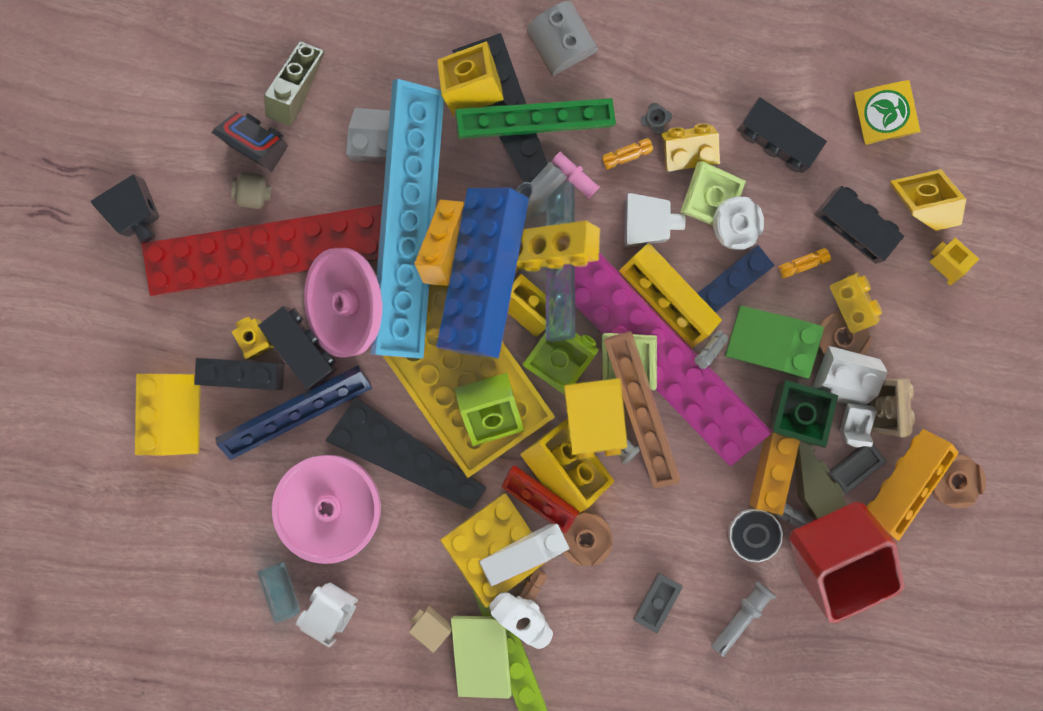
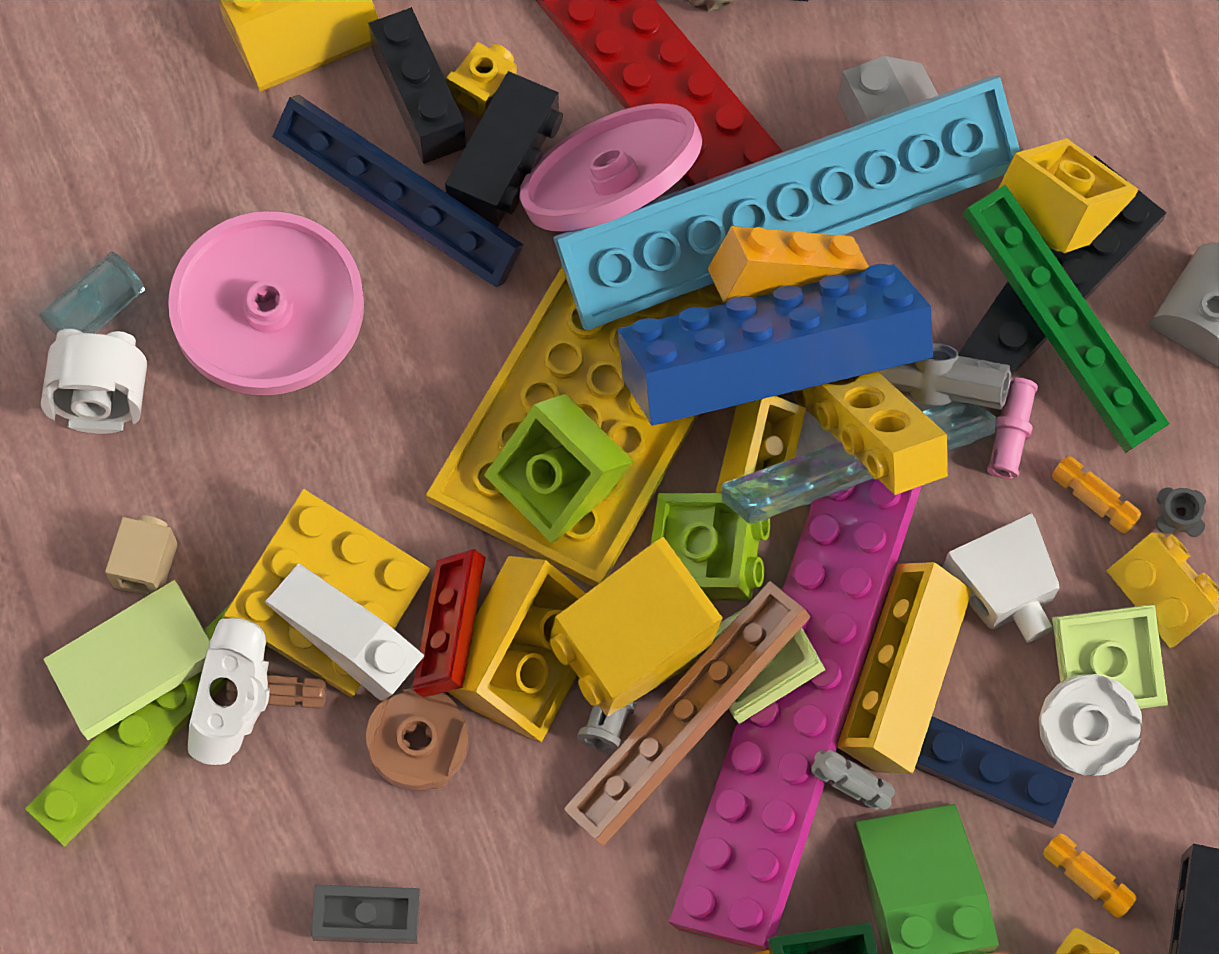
camera: 60 degrees right, 20 degrees down
(387, 445) = (414, 360): black wing -> none

